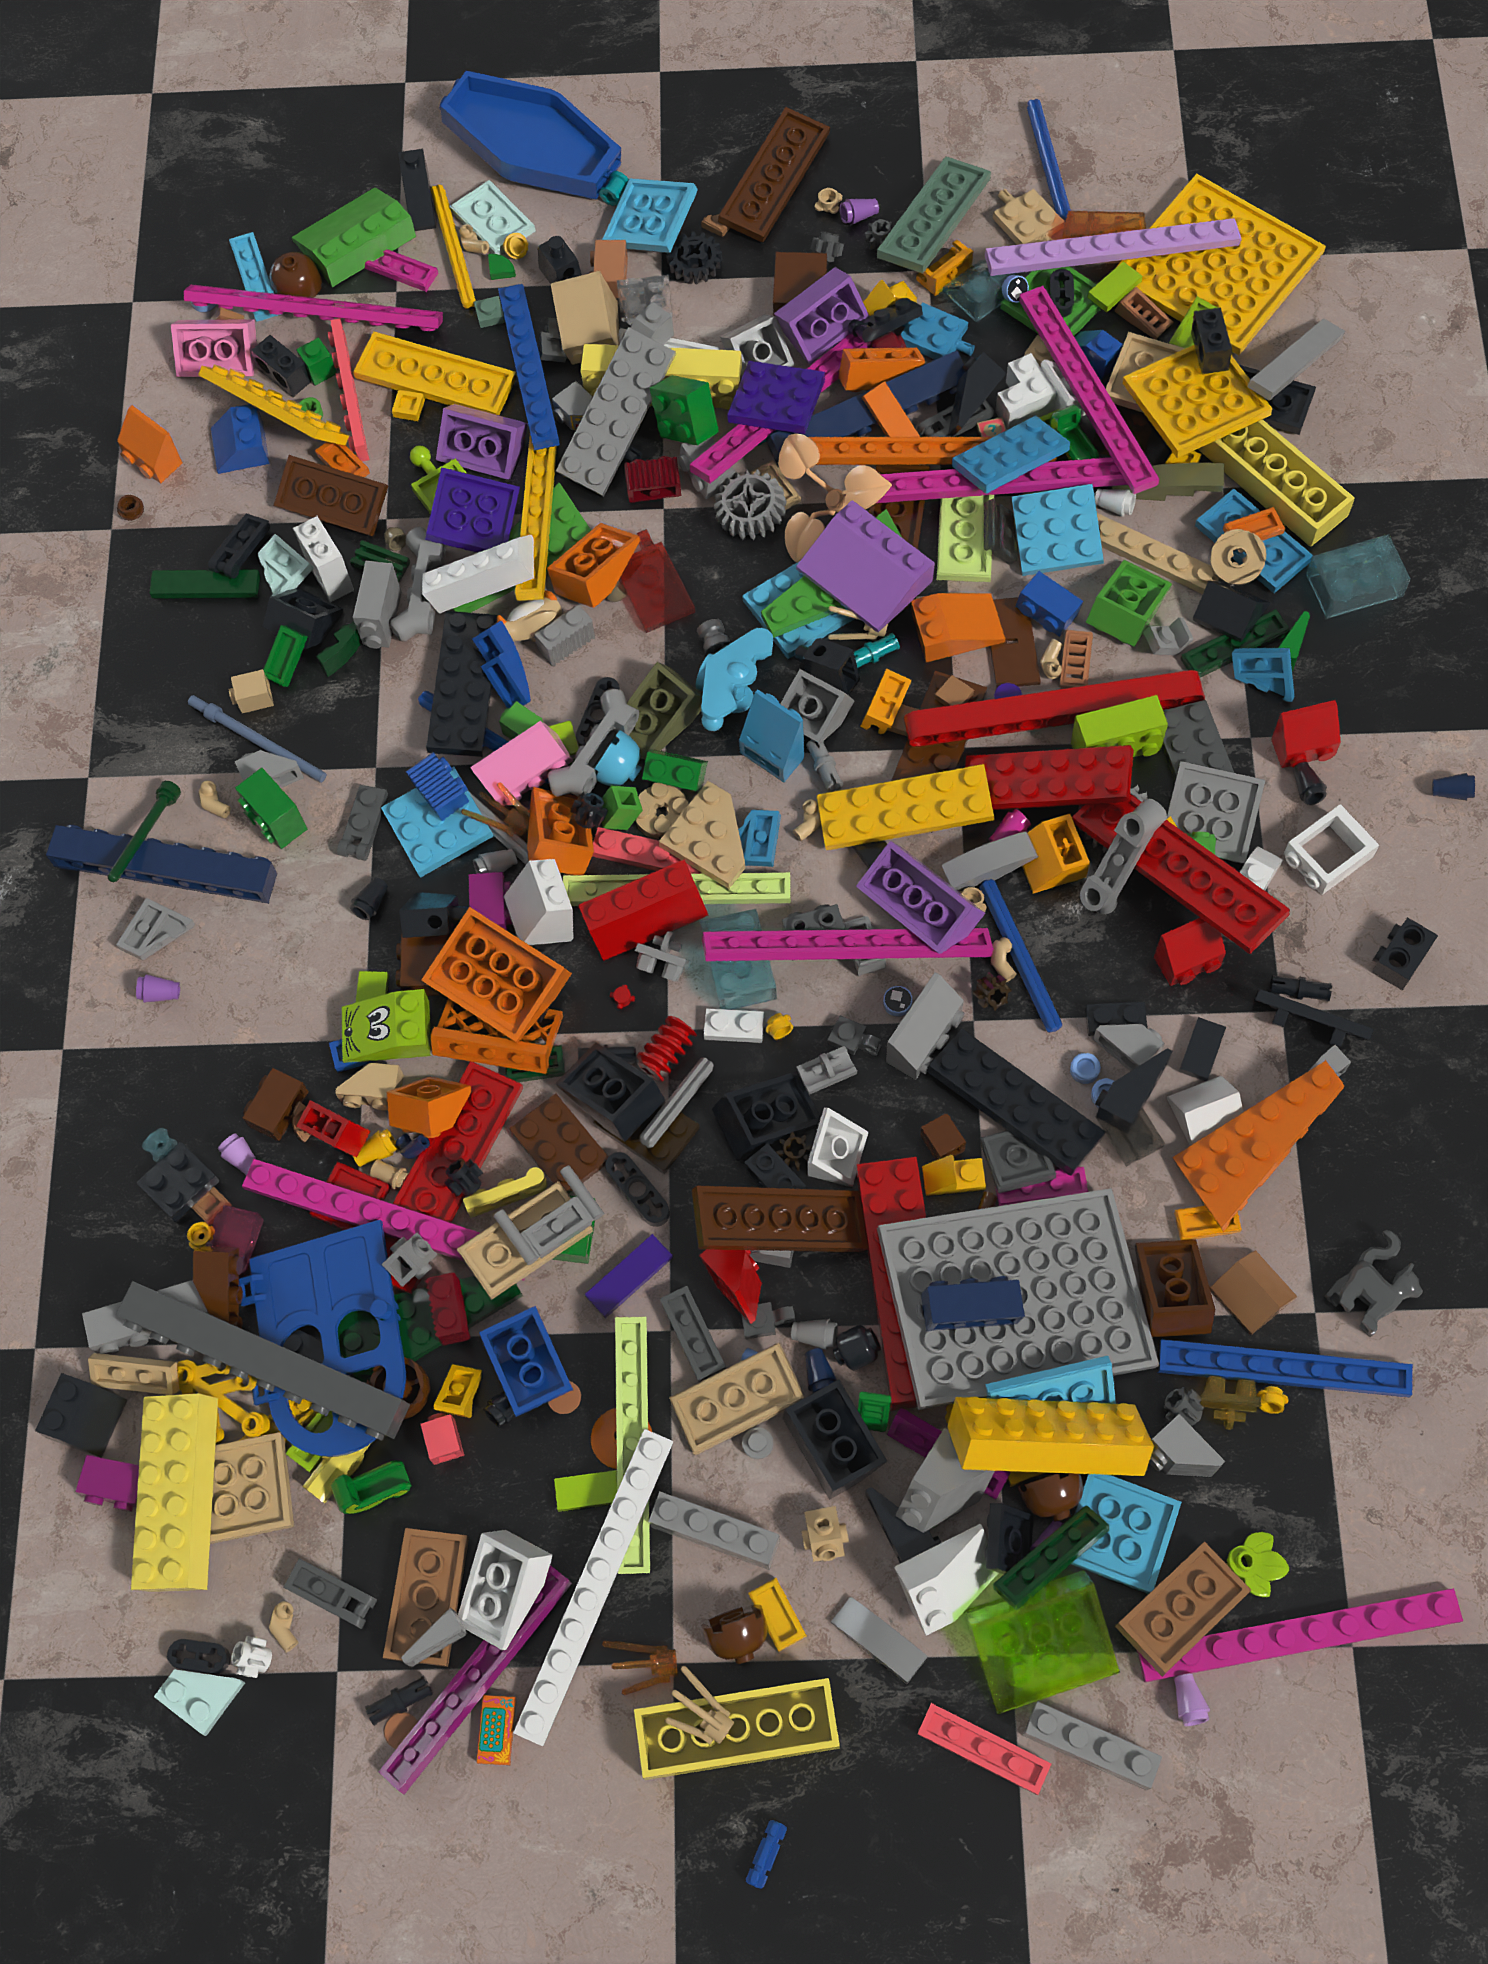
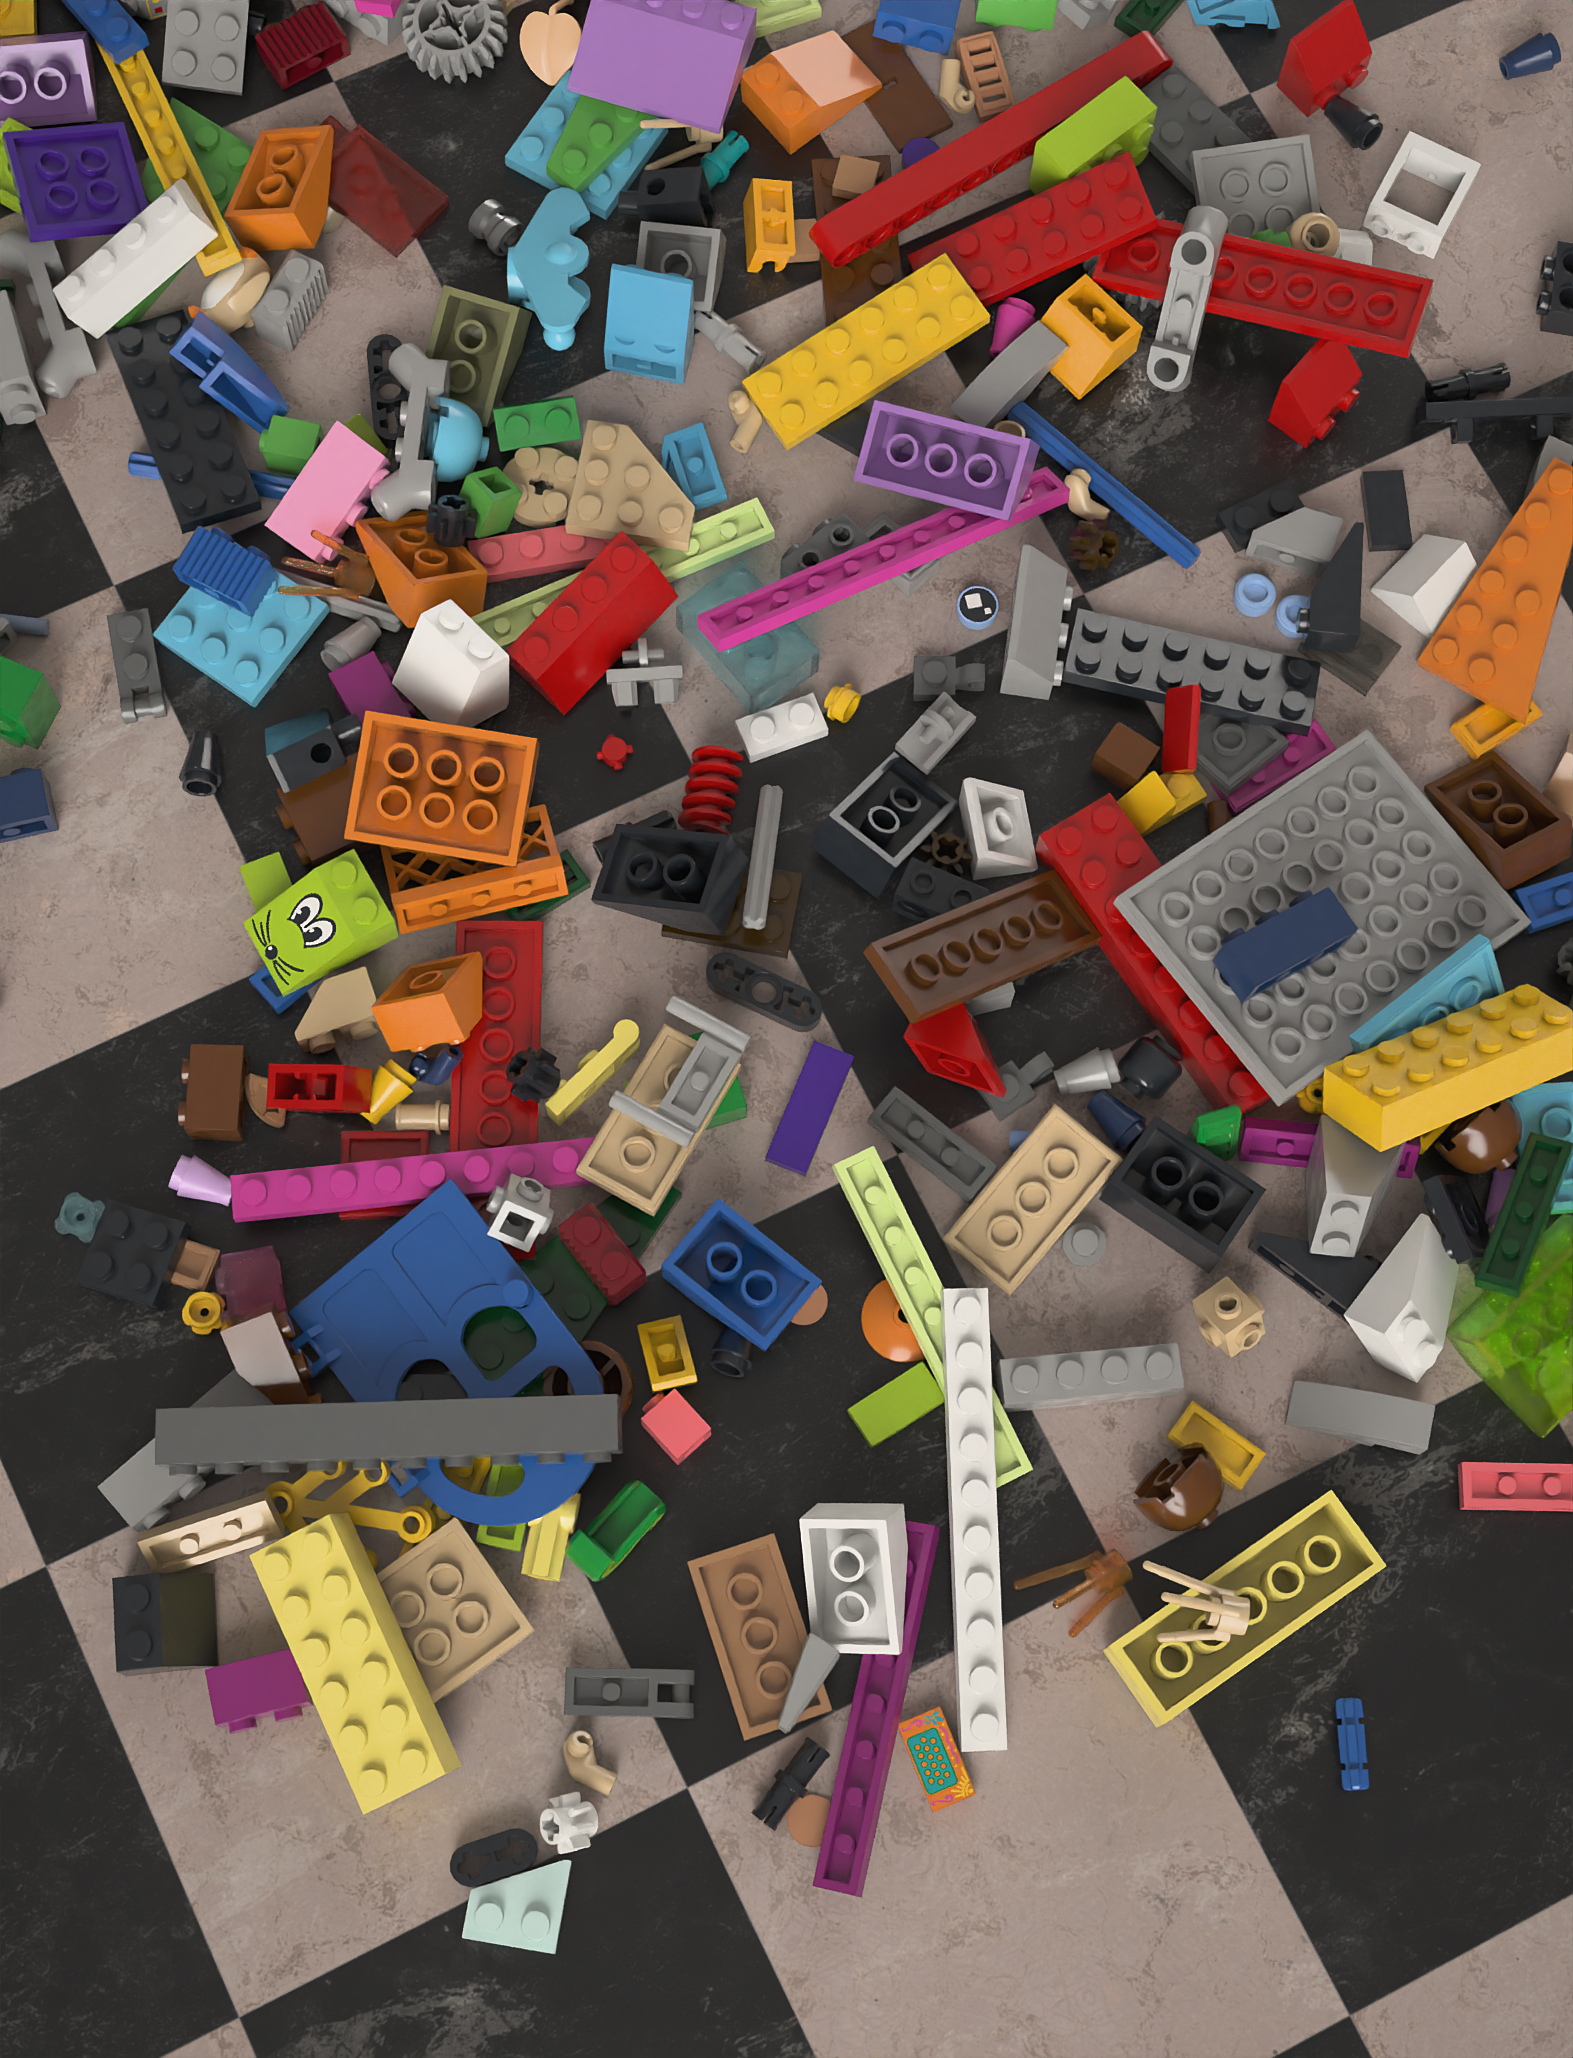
camera: 35 degrees left, 5 degrees up
(557, 1140) = (628, 977): reddish brown plate -> none
(986, 1136) = (1181, 729): none -> red slope
(1240, 843) = (1317, 230): none -> tan head

